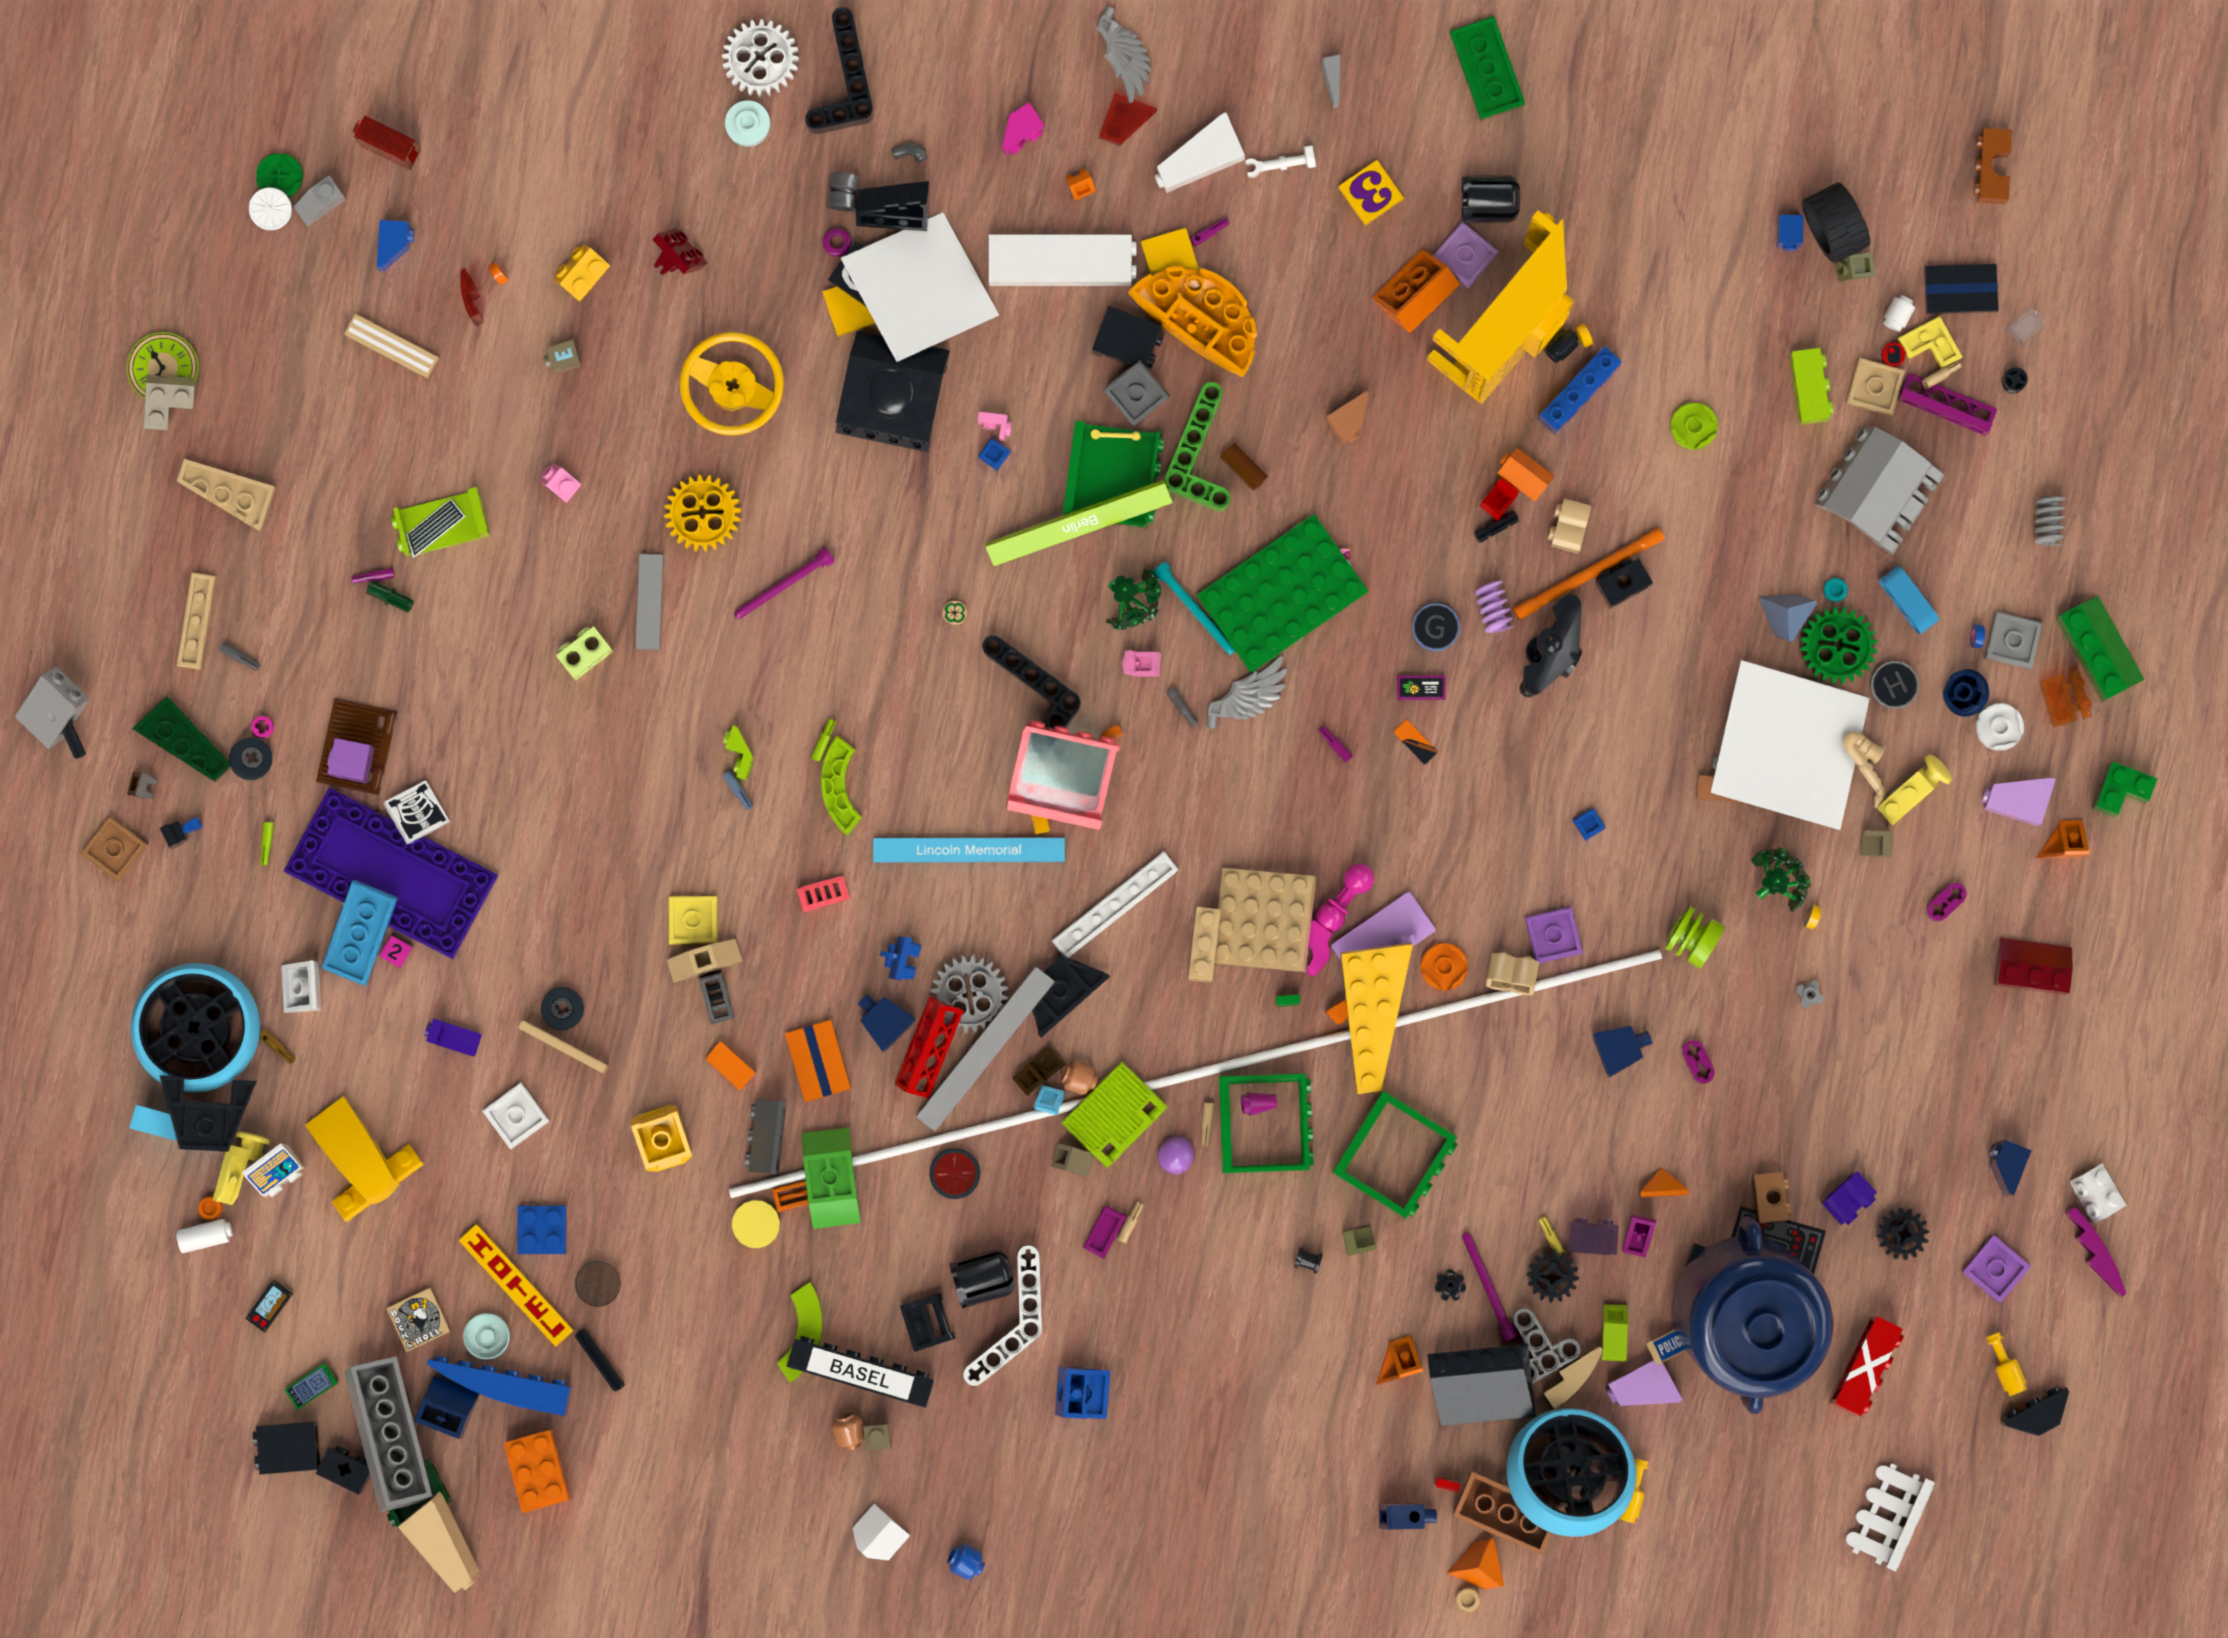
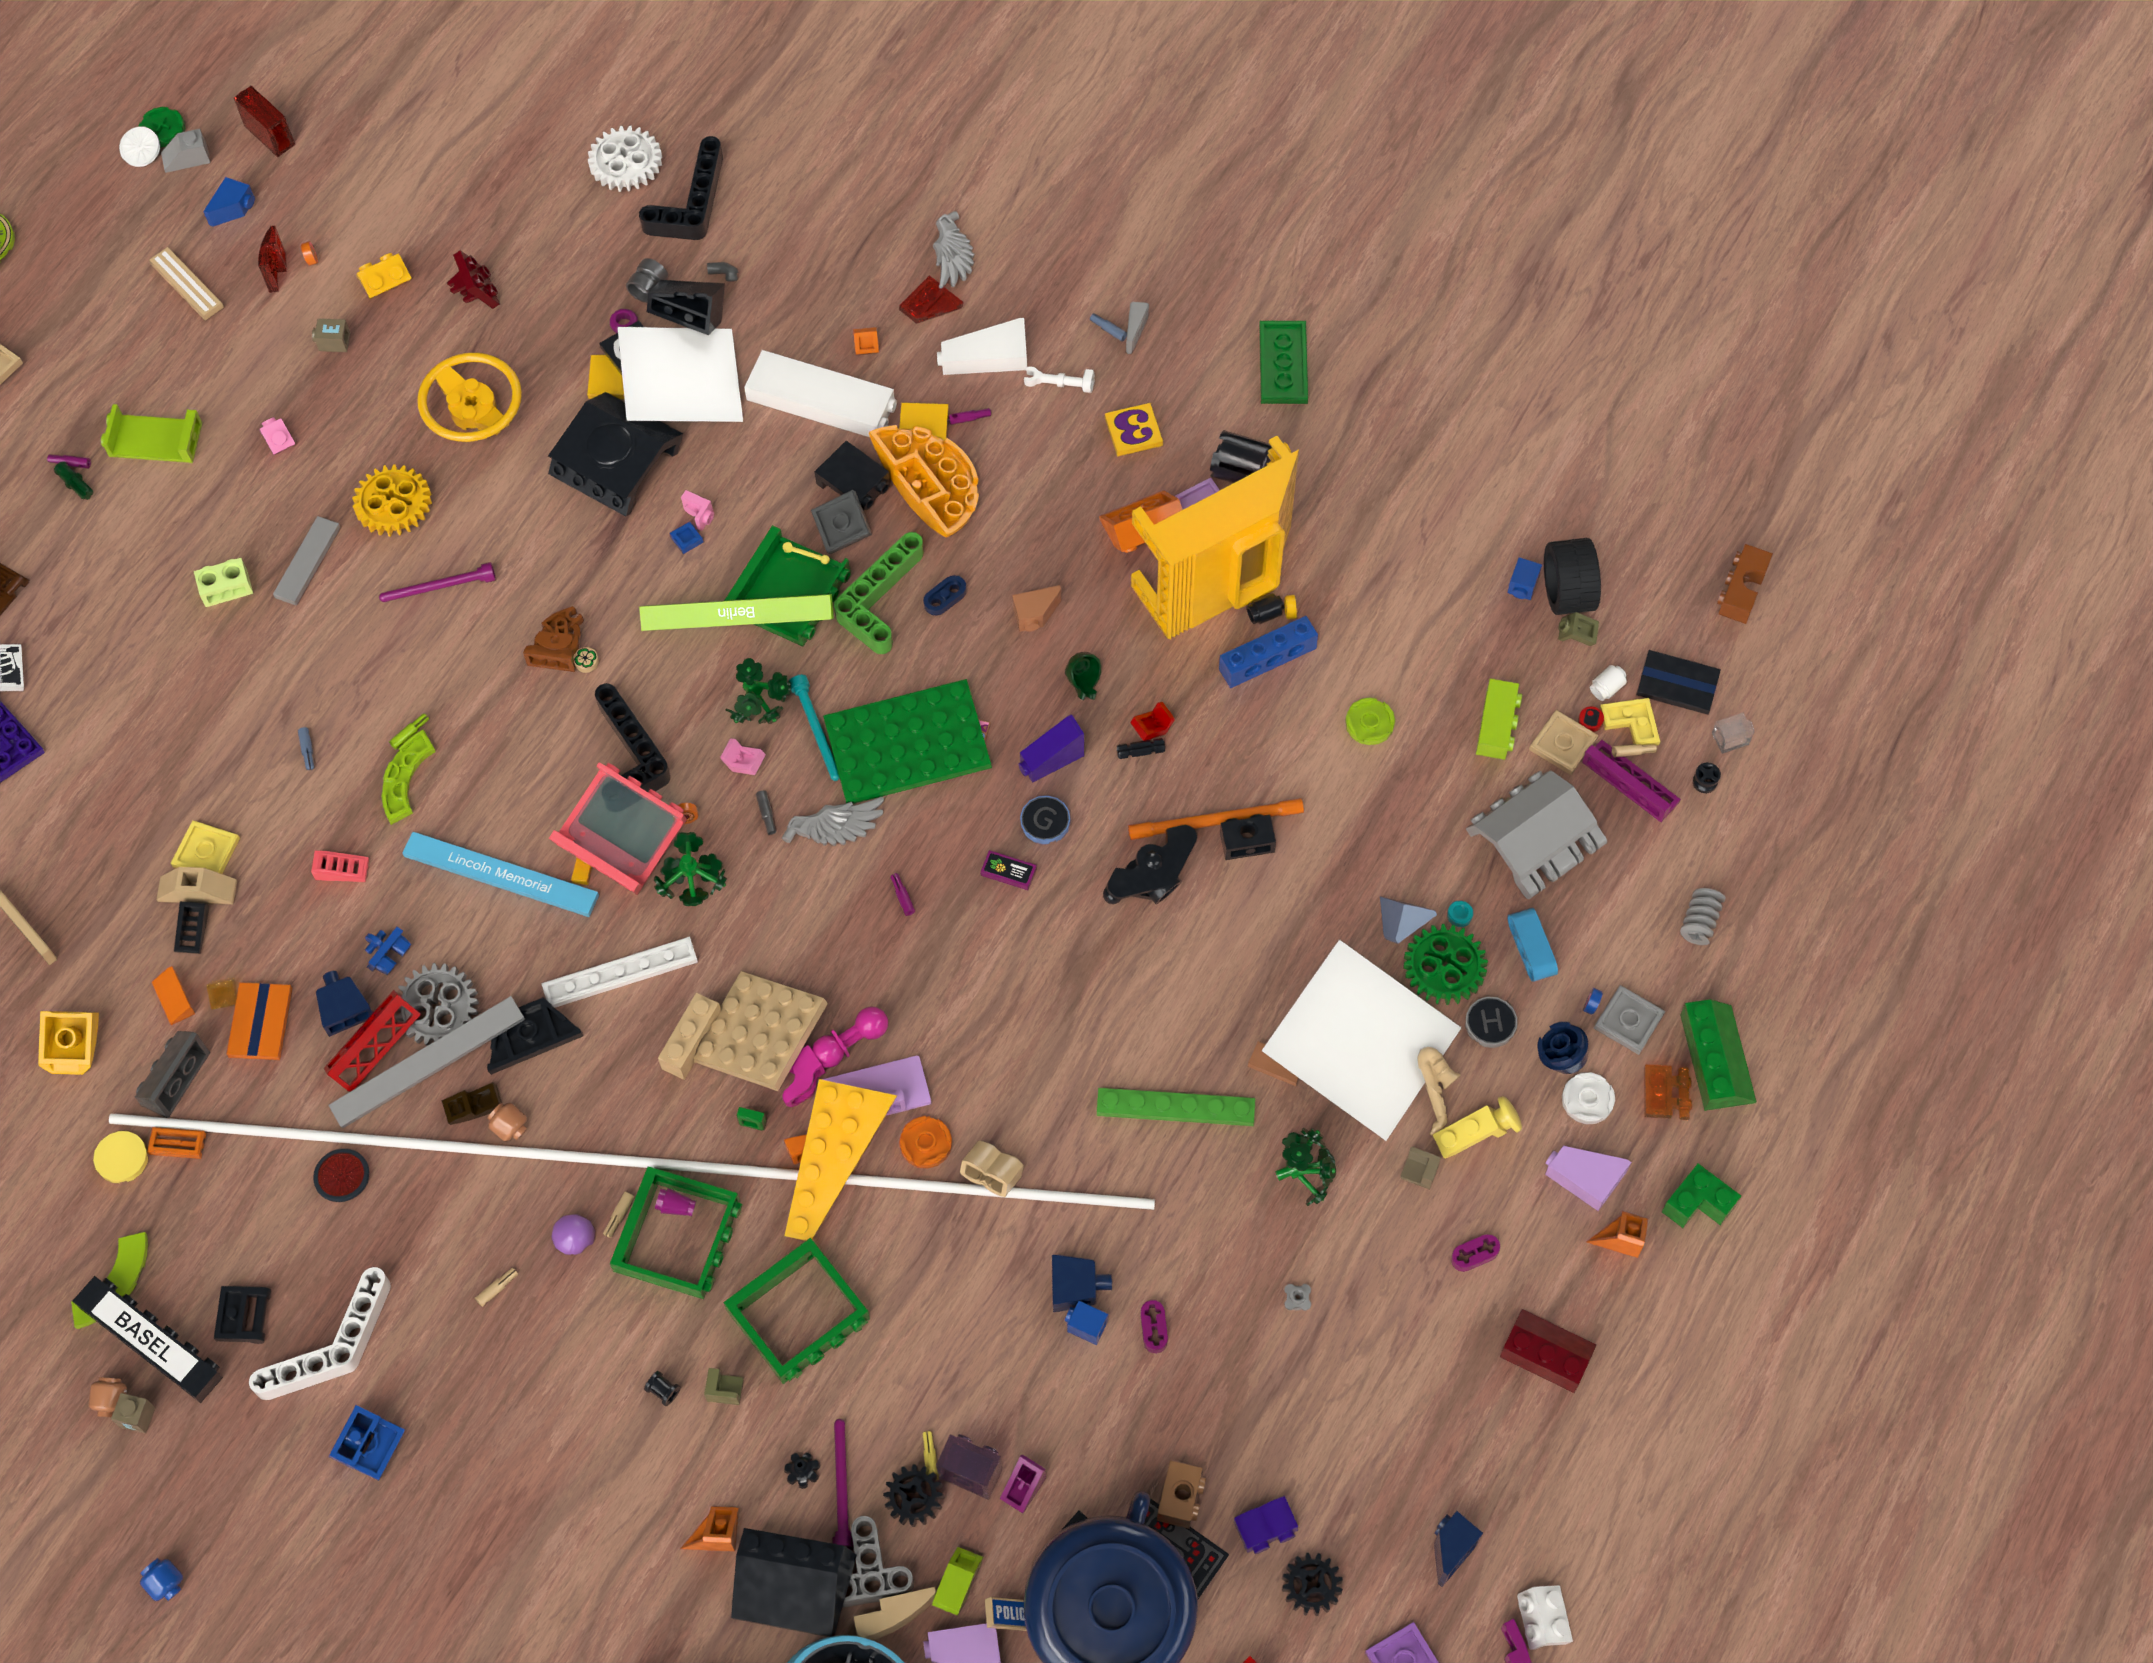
camera: 15 degrees right, 20 degrees down
(434, 527) = (144, 438): sticker -> none
(557, 997) = (40, 877): black bush -> none
(736, 744) = (325, 706): lime slope -> none
(747, 123) = (589, 206): light aqua piece -> none
(772, 1046) = (222, 993): none -> clear yellow slope
(830, 1178) = (210, 1135): bright green slope -> none
(878, 1534) = (87, 1520): white slope -> none
(919, 608) = (555, 643): none -> dark orange piece
(982, 1278) = (315, 1284): black cylinder -> none
(1022, 127) = (831, 280): dark pink slope -> none
(1049, 1100) = (469, 1134): medium azure tile -> none
(1072, 1160) = (465, 1202): dark tan brick -> none
(1104, 1232) = (465, 1287): magenta tile -> none
(1114, 1114) = (527, 1171): lime window -> none
(1152, 783) = (688, 867): none -> dark green plant
(1244, 467) = (916, 619): reddish brown axle -> none
(1260, 433) = (942, 594): none -> dark blue plate
(1306, 86) = (1109, 327): none -> sand blue piece
(1415, 742) = (983, 919): sticker -> none
(1418, 472) = (1083, 673): none -> dark green piece
(1419, 561) = (1053, 750): none -> dark purple slope
(1493, 607) = (1108, 817): lavender piece -> none
(1525, 474) = (1186, 707): orange brick -> none
(1553, 935) = (1050, 1149): medium lavender tile -> none
(1570, 525) = (1213, 768): tan brick -> none
(1589, 824) = (1128, 1053): blue tile -> none
(1641, 1079) = (1086, 1322): none -> blue brick
(1647, 859) = (1175, 1107): none -> bright green plate
(1663, 1185) = (1068, 1443): orange slope -> none
(1694, 937) = (1193, 1192): lime wheel -> none
(1812, 917) = (1327, 1218): yellow tile -> none

